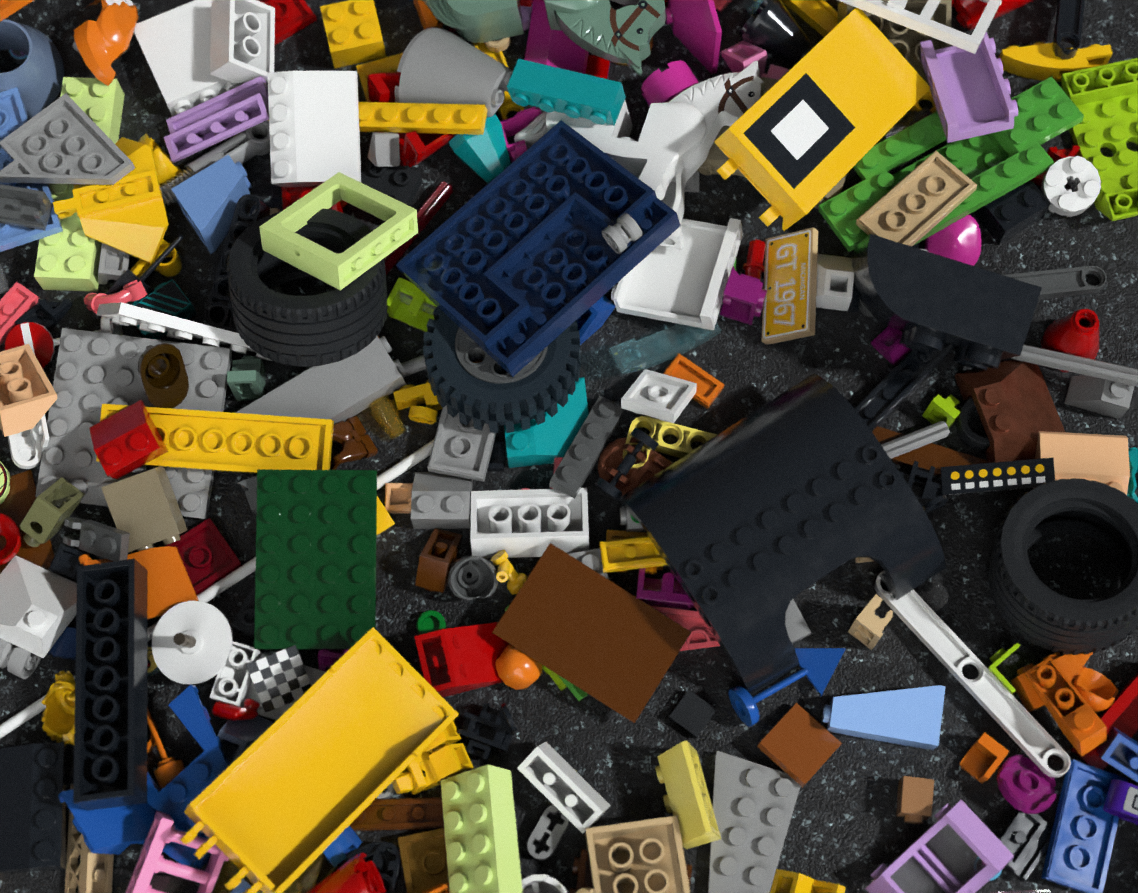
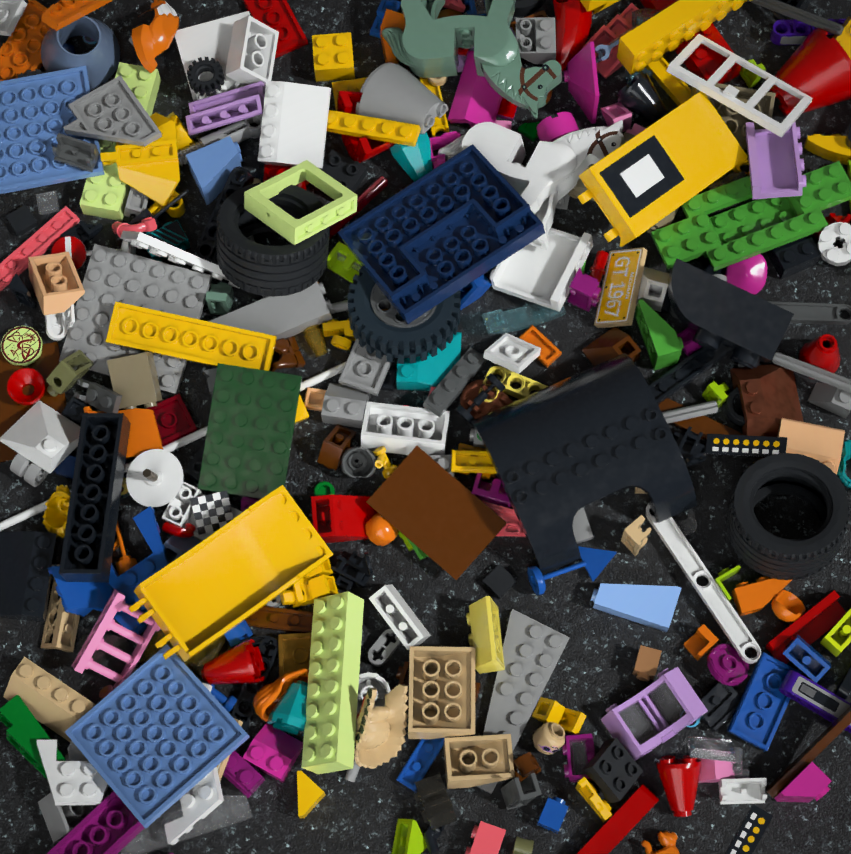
camera: 10 degrees right, 0 degrees up
(126, 440) = (129, 330): red slope -> none
(163, 375) = (161, 287): dark brown piece -> none
(182, 66) = (203, 66): none -> black tyre
(384, 149) = (342, 147): light grey slope -> none
(566, 92) = (479, 124): teal brick -> none
(622, 233) = (500, 232): light grey wheel -> none
(634, 94) = (529, 130): none -> green tile
(789, 367) = (611, 345): none -> reddish brown slope
(799, 744) = (571, 613): dark orange tile -> none
(852, 344) = (658, 336): none -> bright green slope
(918, 202) = (722, 240): tan tile -> none
(1067, 707) = (765, 614): orange slope -> none

